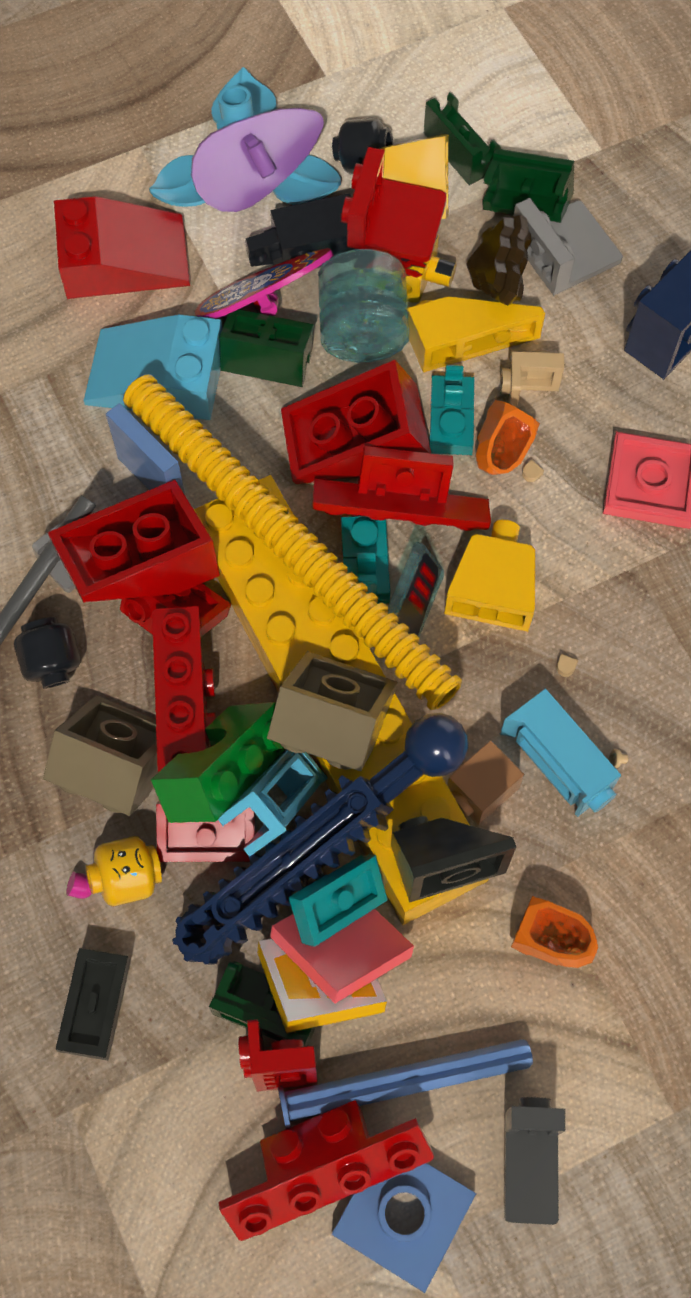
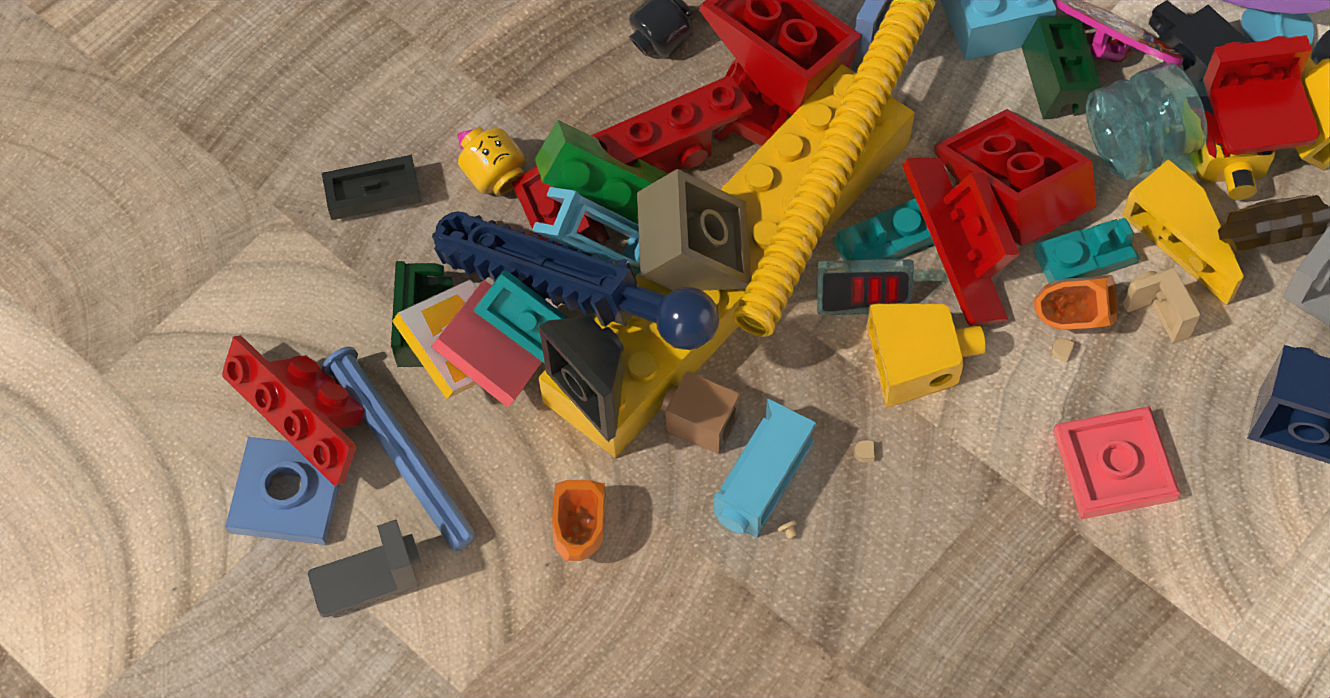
camera: 70 degrees right, 5 degrees down
(105, 755) = (588, 93): dark tan slope -> none
(284, 1065) = (368, 321): red bracket -> none

